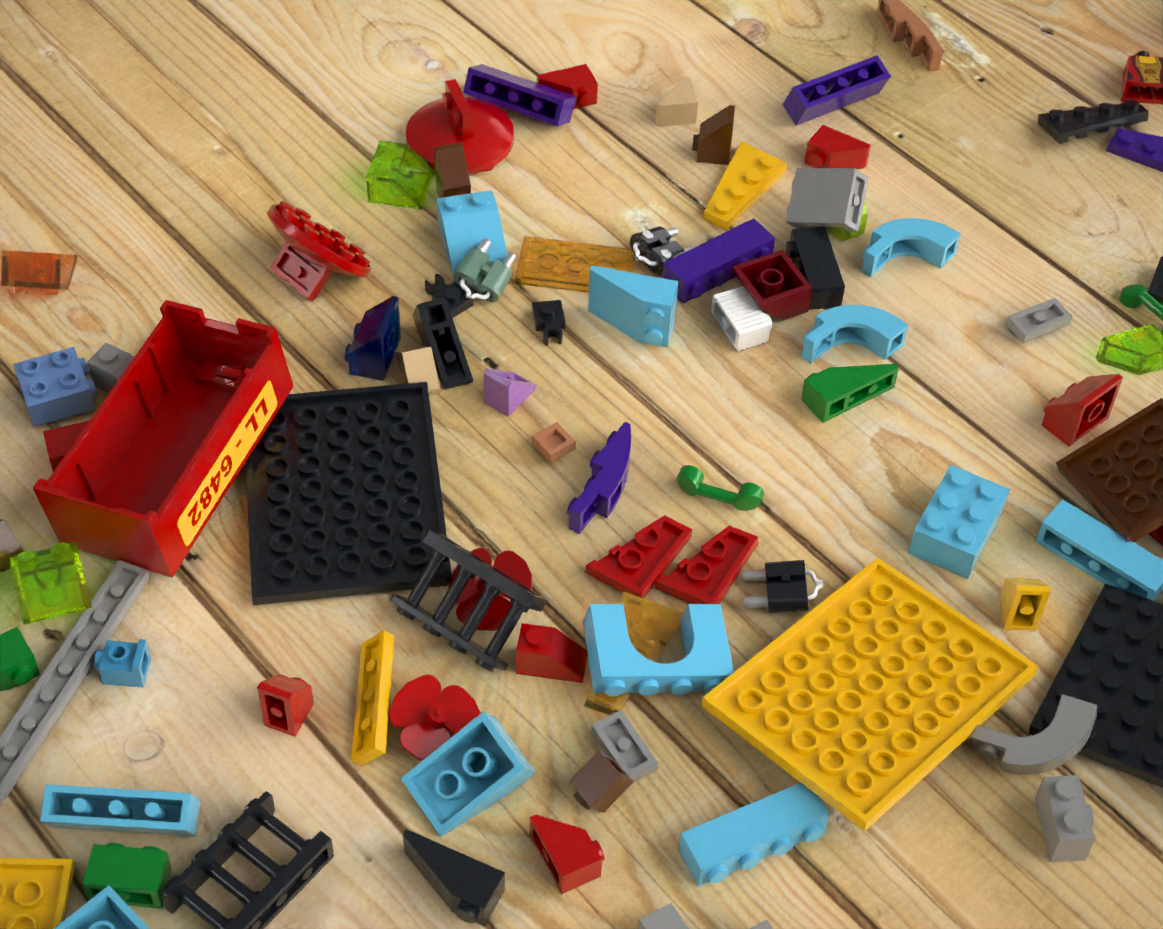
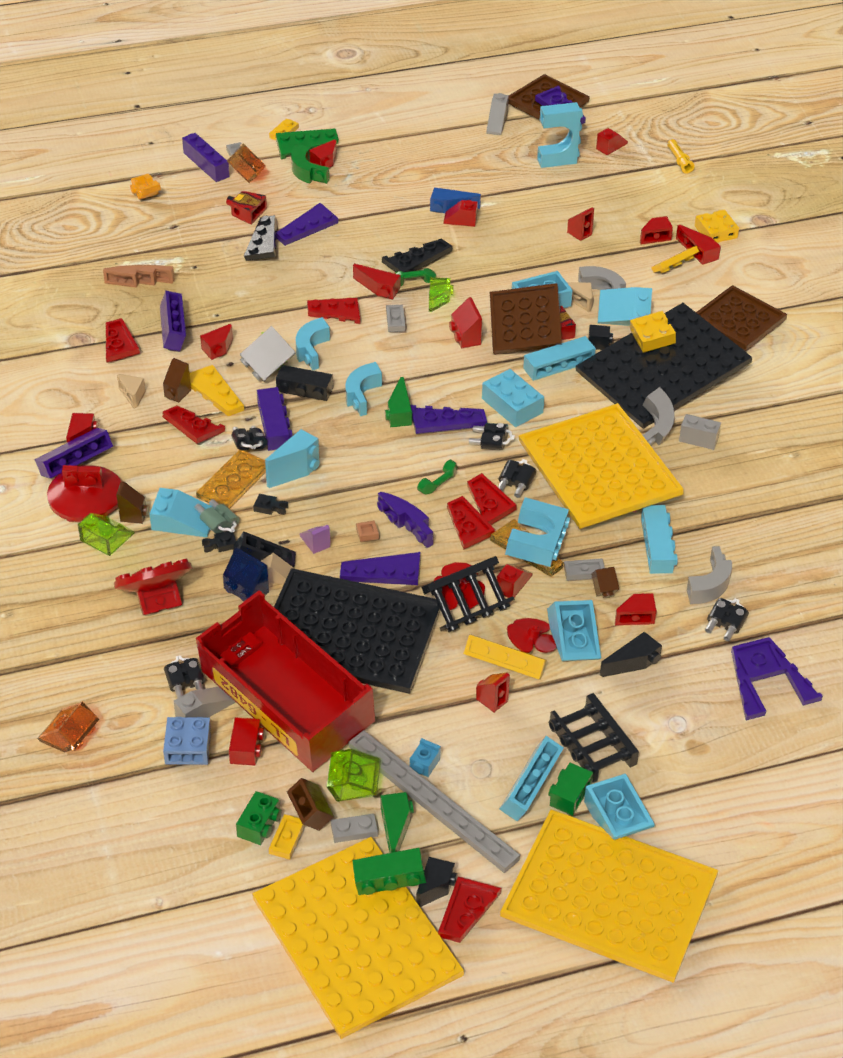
camera: 65 degrees left, 5 degrees down
(492, 495) = (391, 569): none -> dark purple wing
(653, 187) = (192, 426): none -> red wing
(741, 318) = (323, 424): white brick -> none
(768, 62) = (119, 341): none -> red wing
(775, 285) = (312, 398): dark red slope -> none
(852, 451) = (445, 419): none -> dark purple wing
(855, 528) = (492, 436): none -> black piece
(1010, 251) = (338, 308): none -> red wing
(1023, 603) = (574, 394): yellow slope -> none
(1105, 278) = (377, 281): none -> red slope

